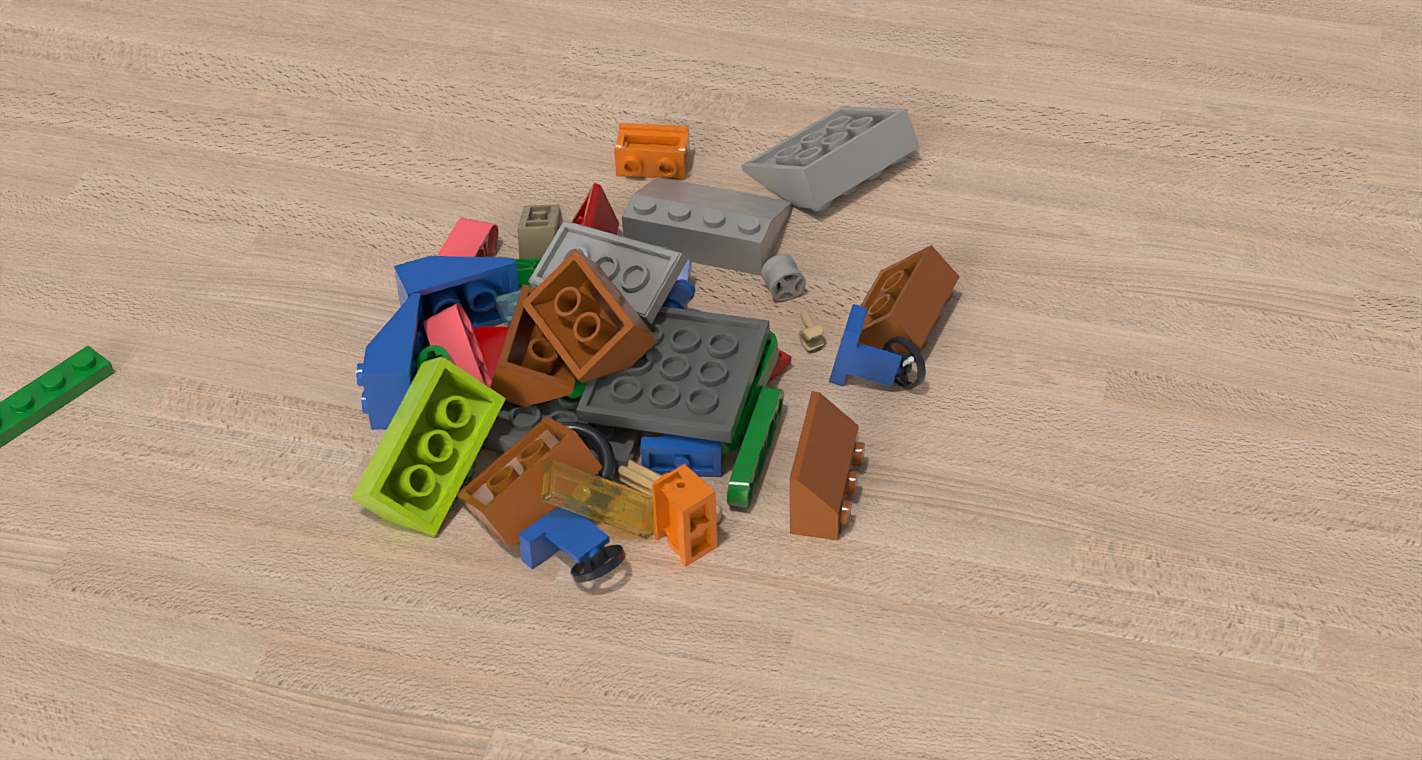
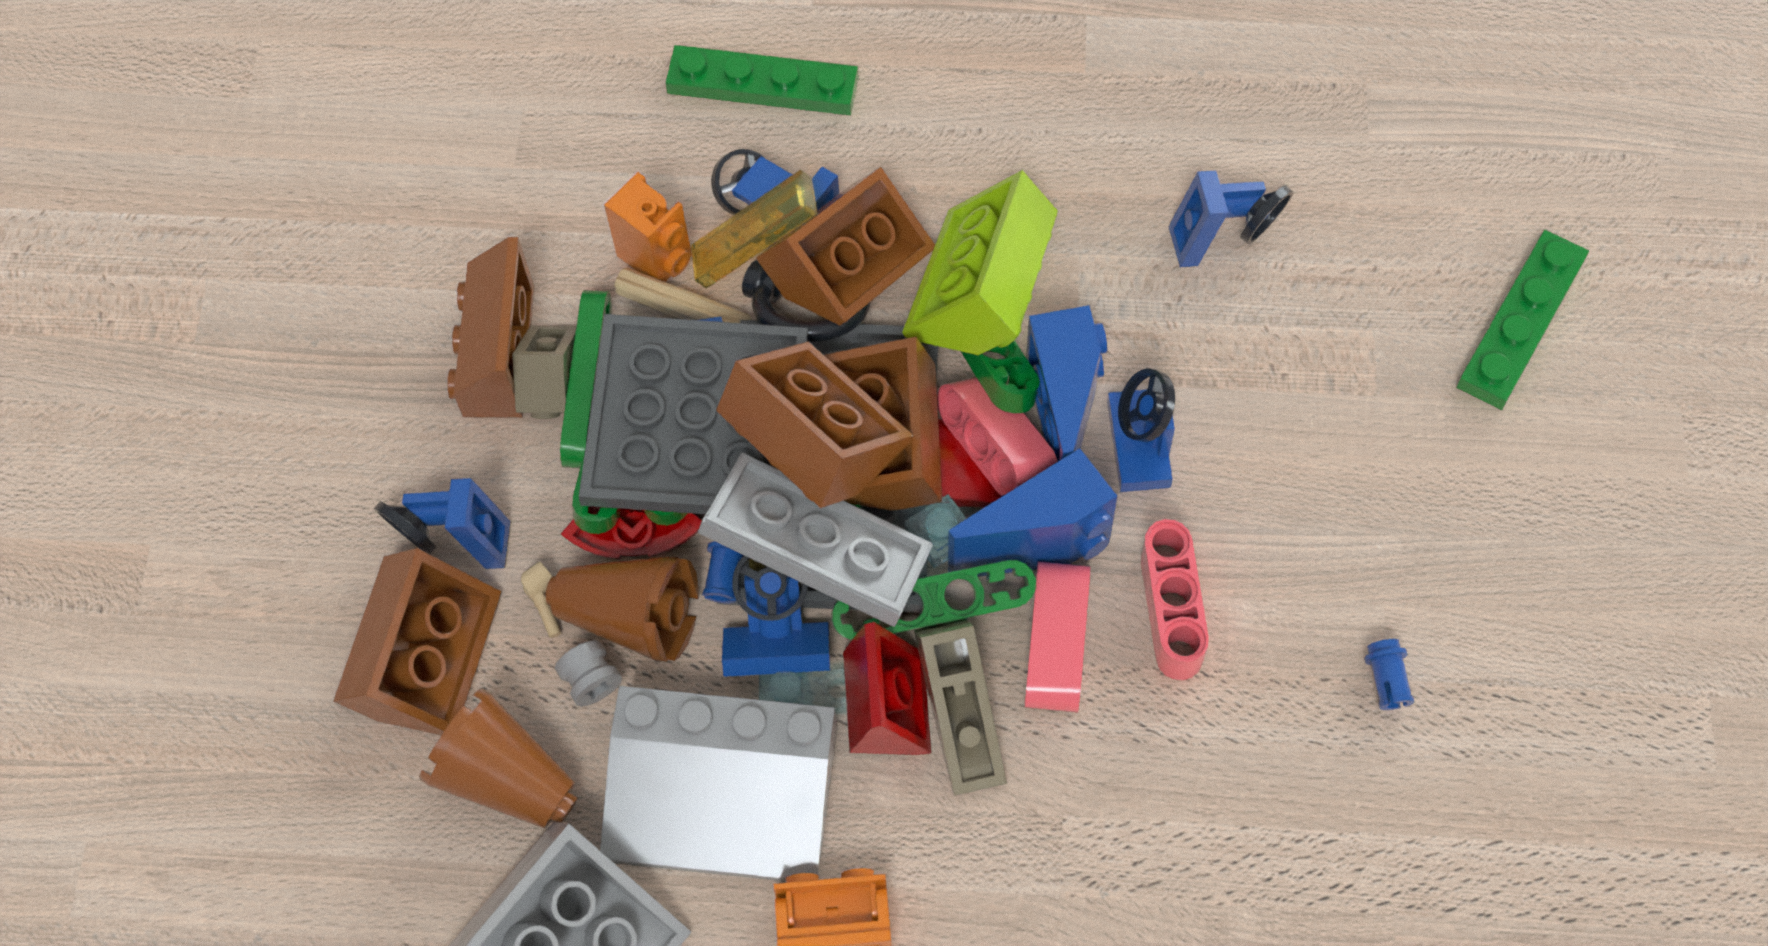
camera: 170 degrees right, 20 degrees up
(240, 471) = (1209, 204): none -> blue piece
(256, 224) = (1389, 673): none -> blue pin
(346, 346) = (1143, 431): none -> blue piece
(374, 267) = (1177, 576): none -> coral beam
(560, 659) = (762, 80): none -> green plate
(745, 291) = (630, 603): none -> dark orange cone
(778, 455) = (543, 370): none -> dark tan slope
(854, 232) = (499, 766): none -> dark orange cone

